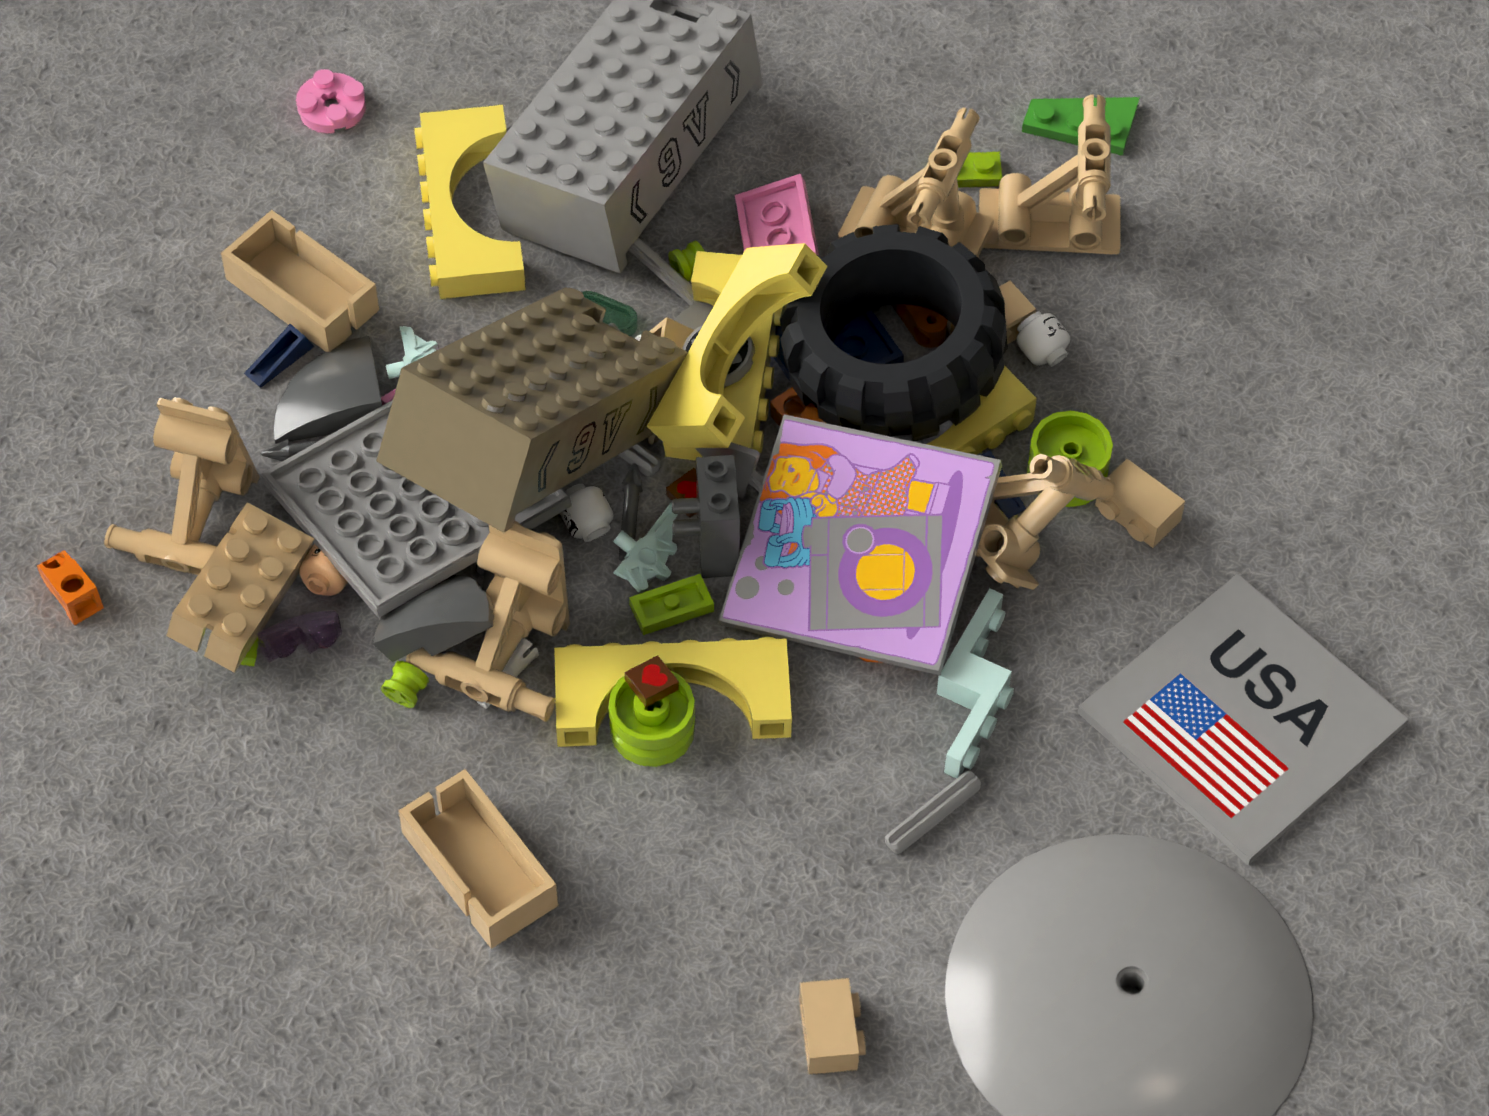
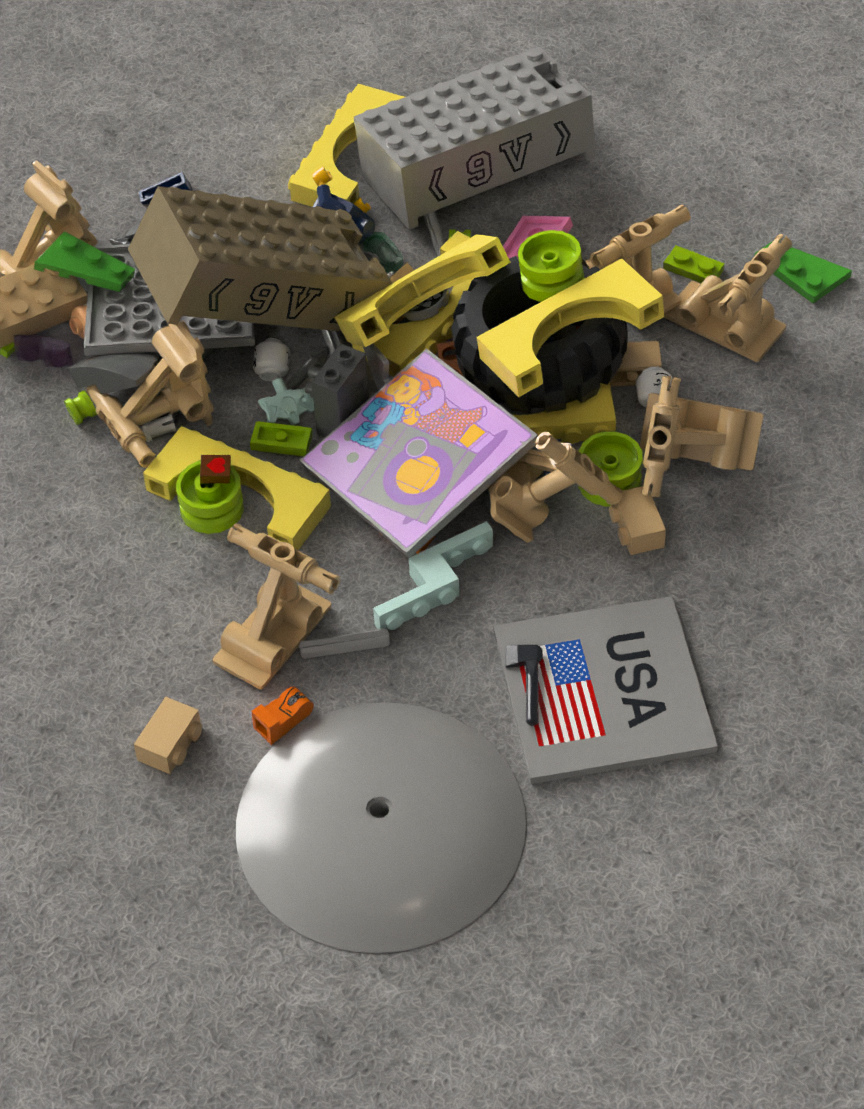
camera: 35 degrees right, 5 degrees down
(286, 499) = (77, 258): none -> bright green wing
(308, 290) = (207, 148): tan piece -> none
(326, 86) = (320, 48): bright pink plate -> none
(479, 859) = (35, 527): tan piece -> none
(533, 284) = (330, 201): none -> dark blue torso
(845, 815) = (283, 611): none -> tan plate
(885, 251) = (549, 263): none -> lime wheel
(932, 932) = (281, 714): none -> orange leg
(976, 252) = (609, 293): none -> light yellow arch
(1128, 369) = (695, 431): none -> tan plate
(1148, 720) = (530, 657): none -> black piece

